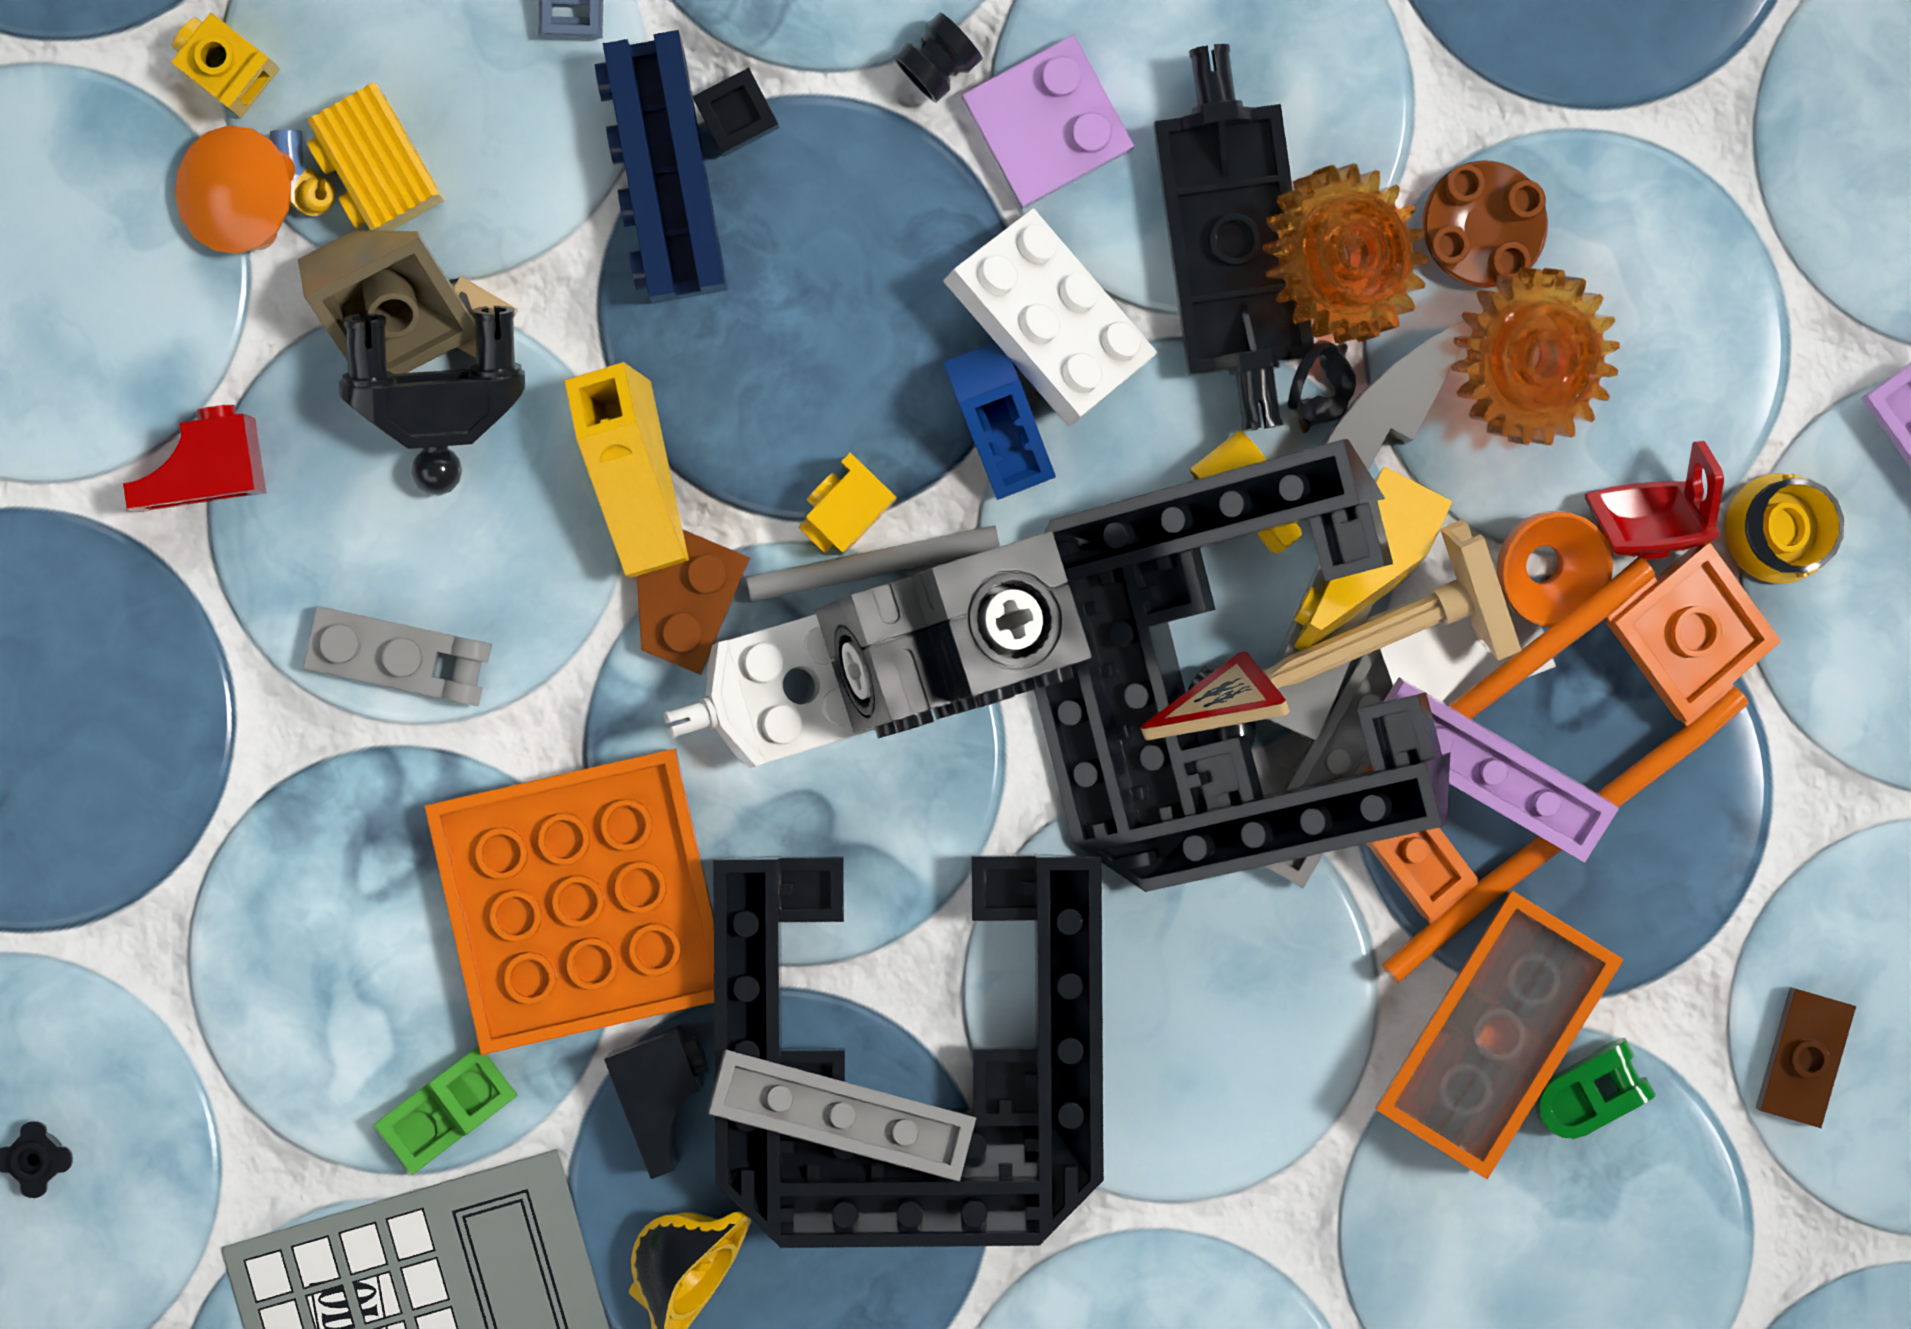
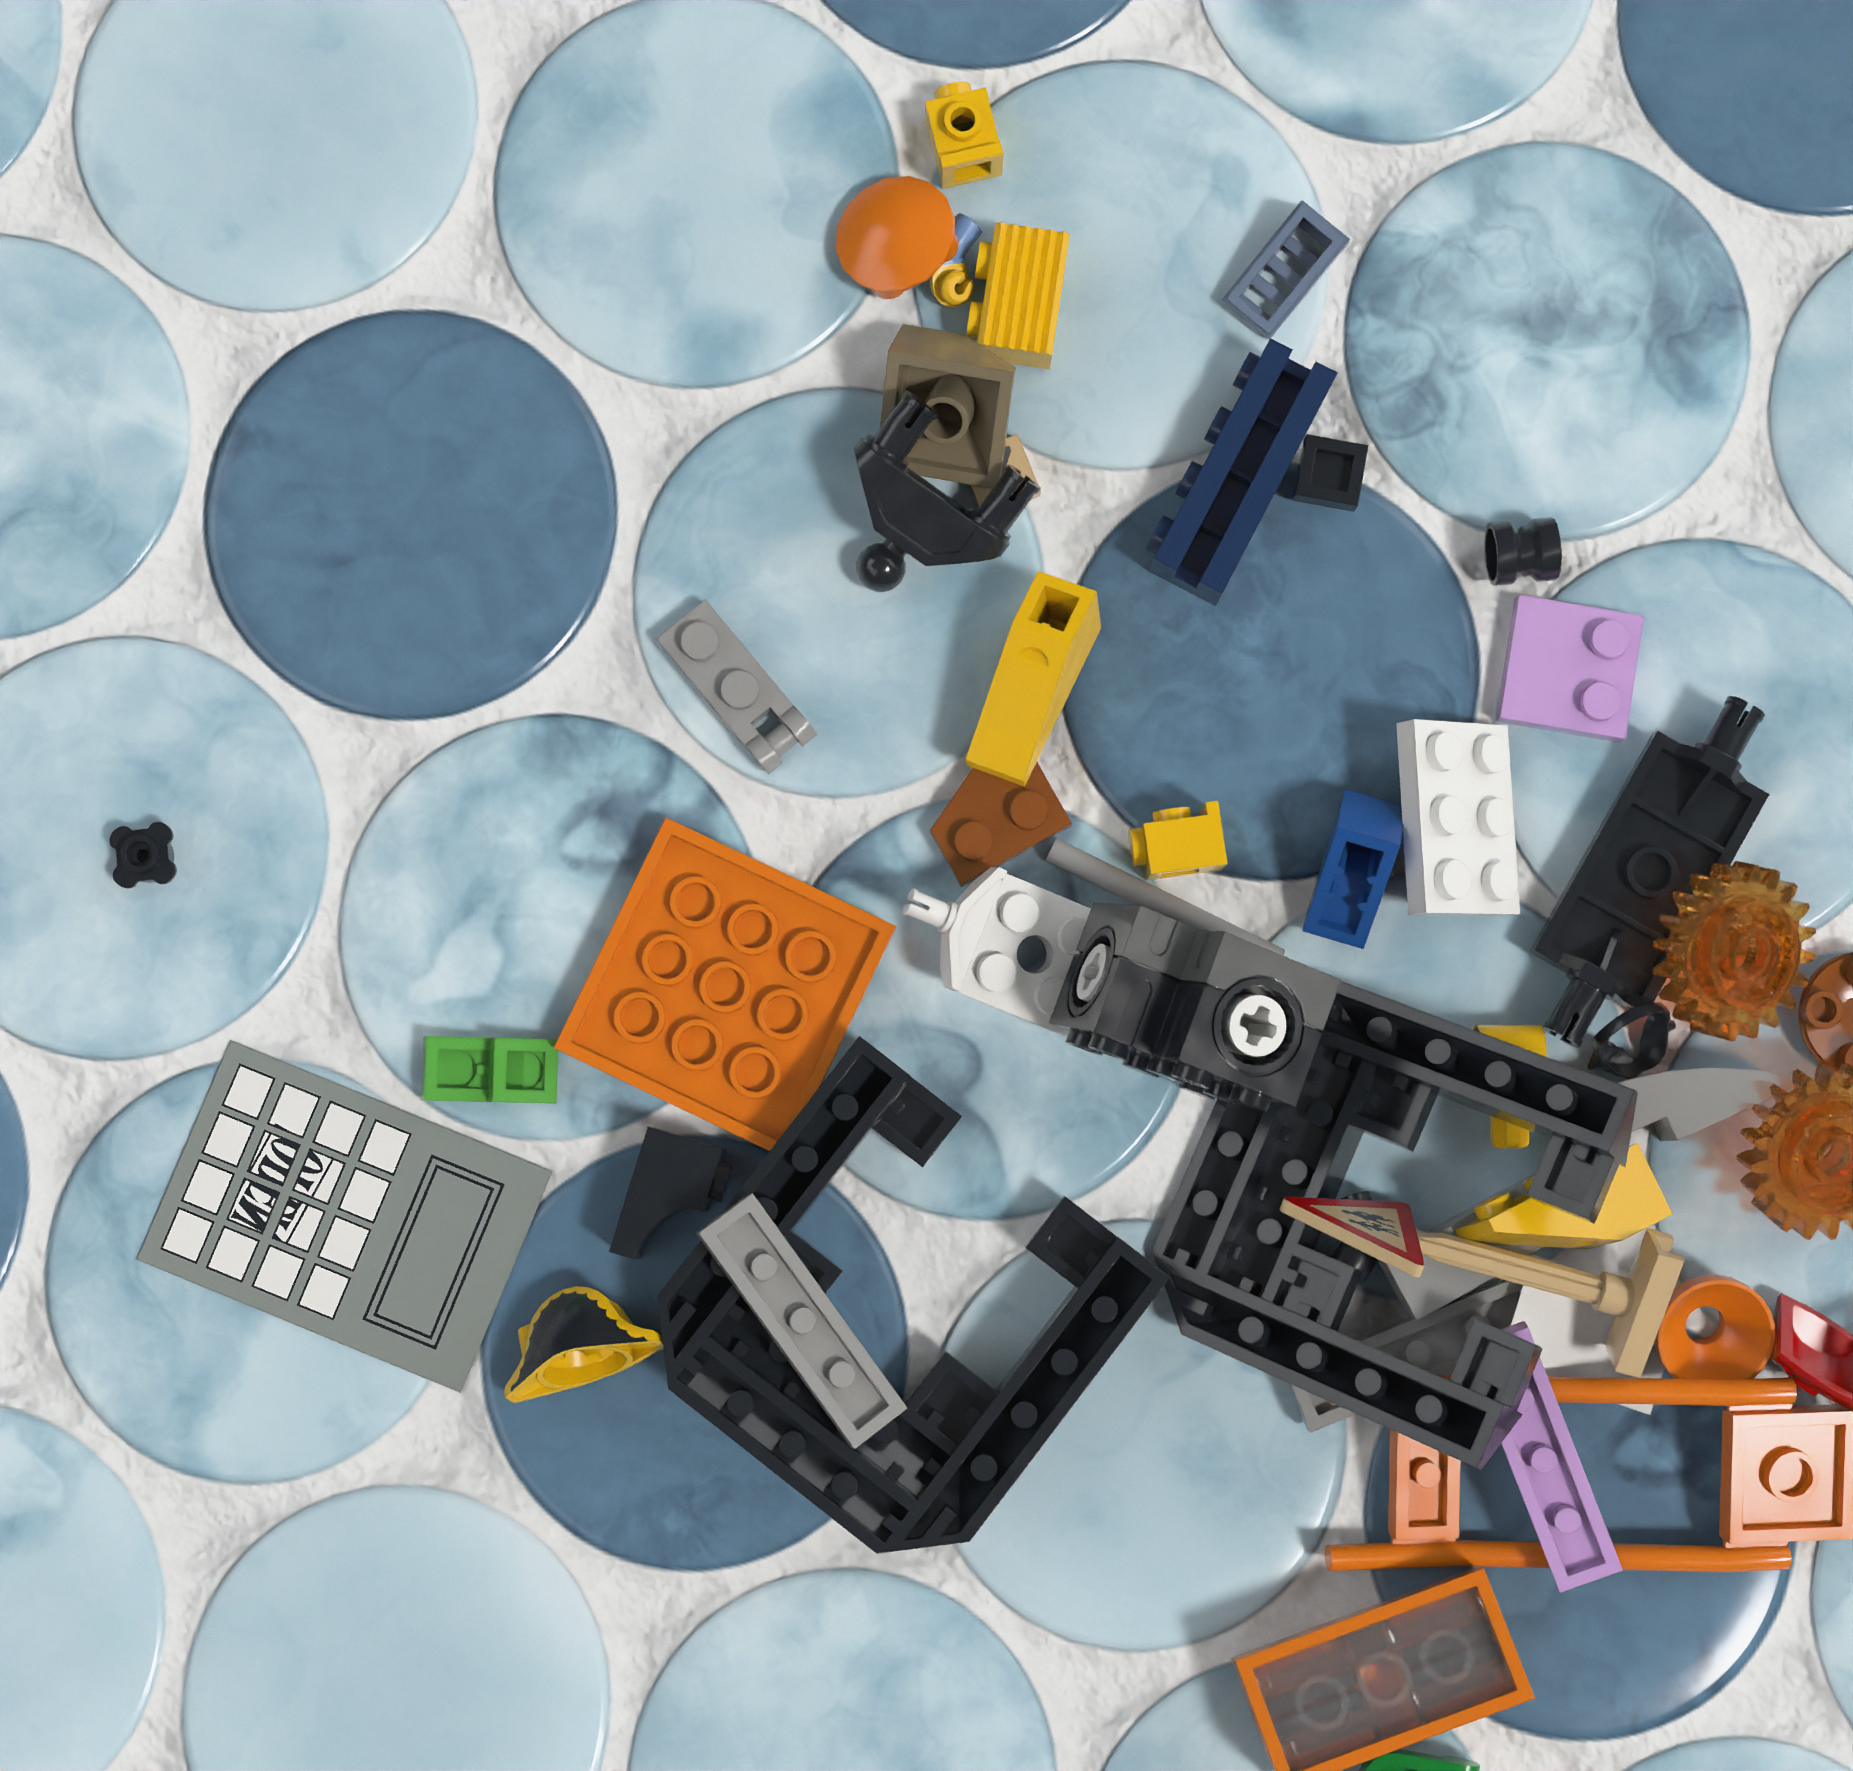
camera: 40 degrees right, 5 degrees down
(212, 462) = (709, 427): red arch -> none

